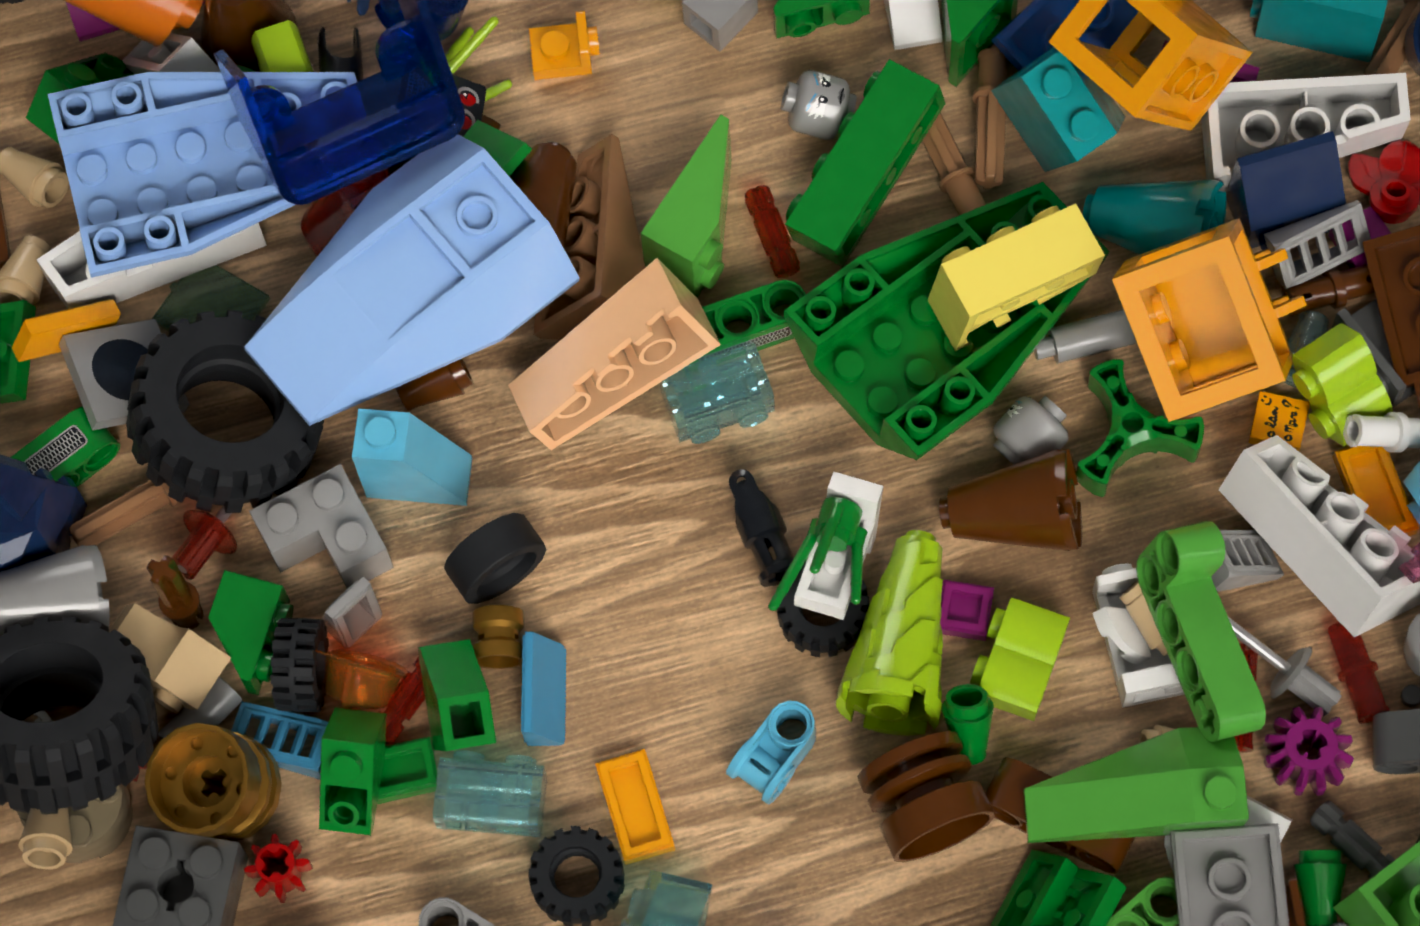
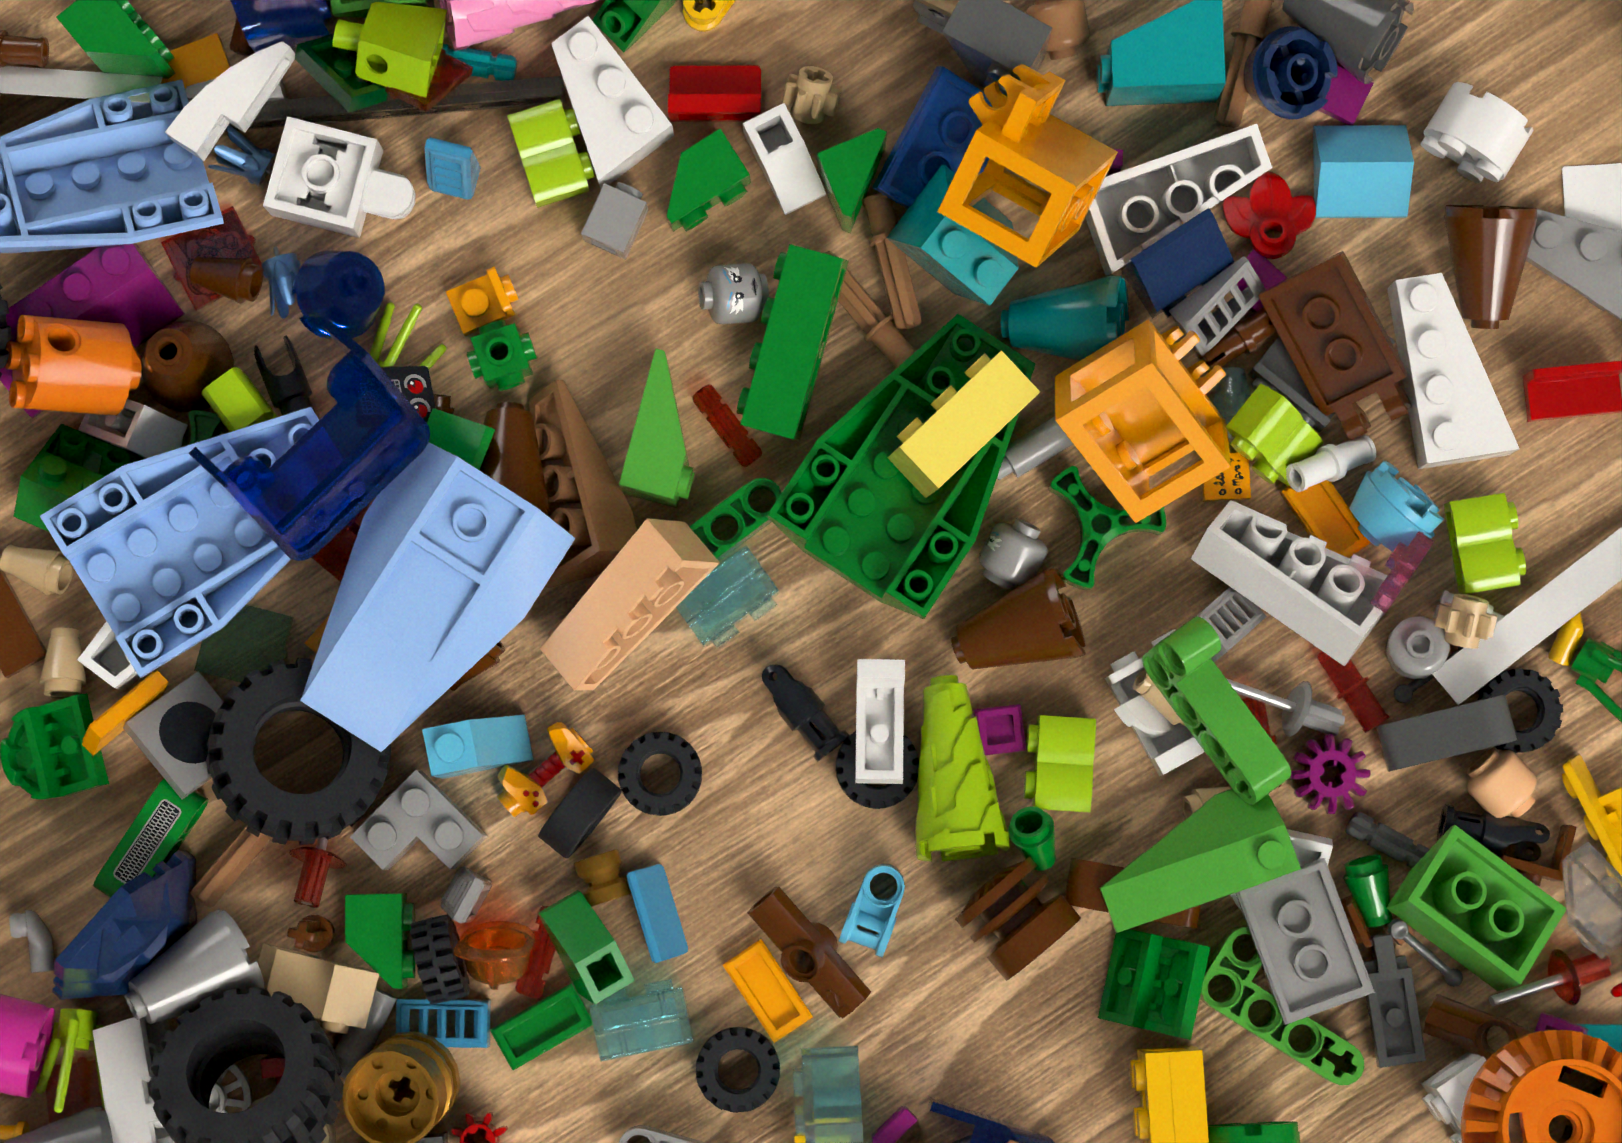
camera: 20 degrees left, 15 degrees up
(351, 770) = (516, 1039): green slope -> none
(446, 529) = (525, 791): none -> light orange piece
(564, 99) = (512, 369): none -> green brick
(582, 522) = (630, 769): none -> black tyre
(682, 748) = (809, 952): none -> reddish brown piece
(833, 531) = (873, 708): green plant -> none

